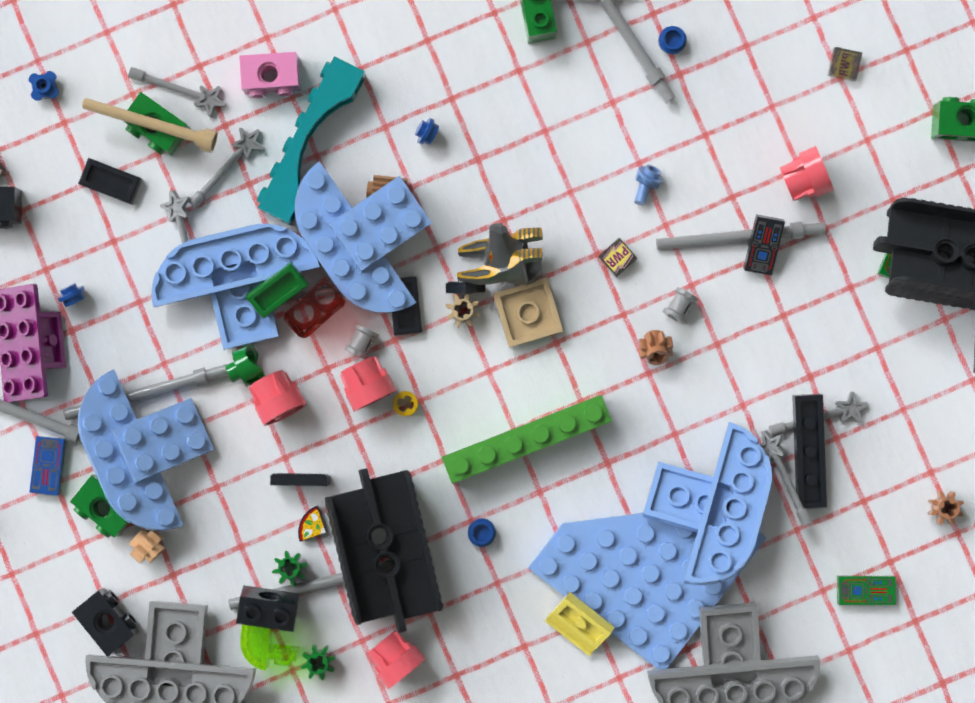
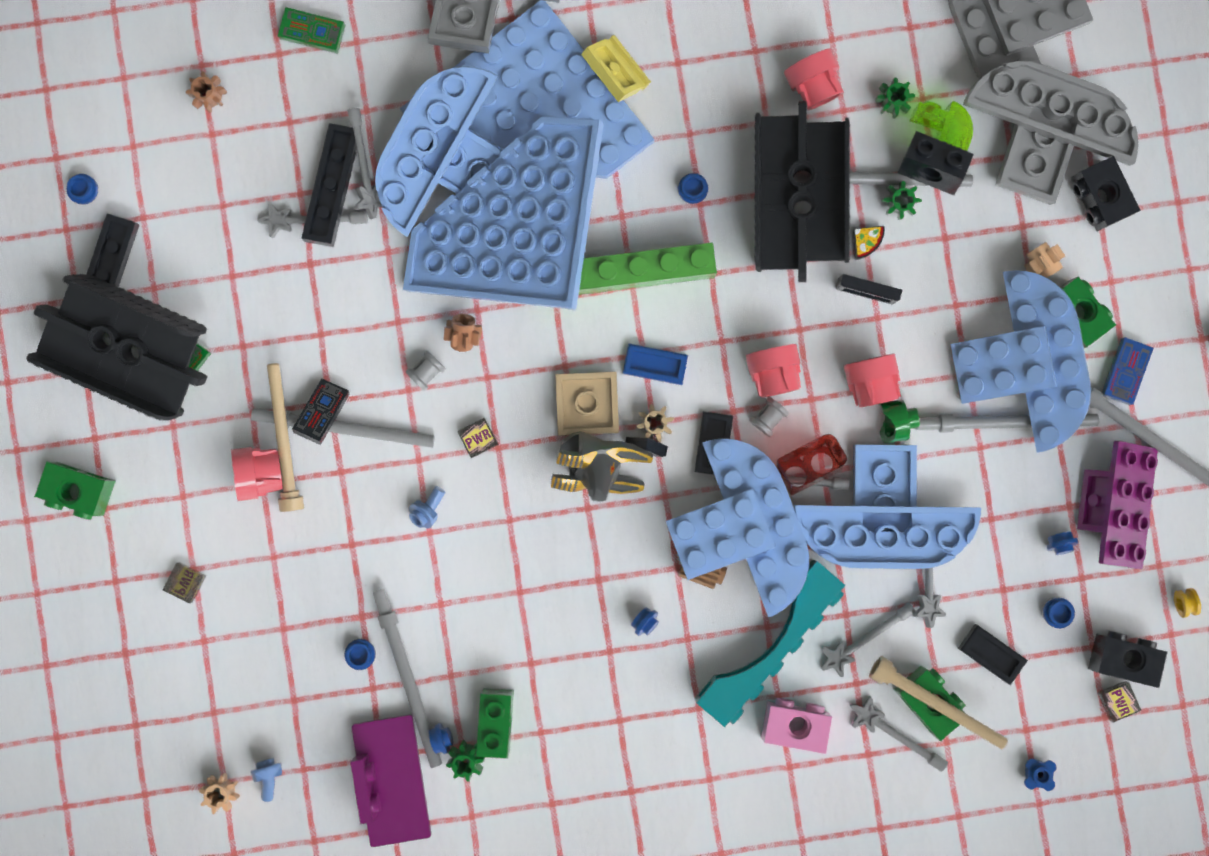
camera: 160 degrees left, 0 degrees up
(59, 232) = (1058, 613): none -> blue plate
(277, 290) = (846, 492): green tile -> none
(402, 395) = (737, 332): yellow bush -> none
(475, 364) = (655, 364): none -> blue tile
(633, 455) = (516, 223): none -> light blue plate
(770, 161) = (290, 497): none -> tan piece

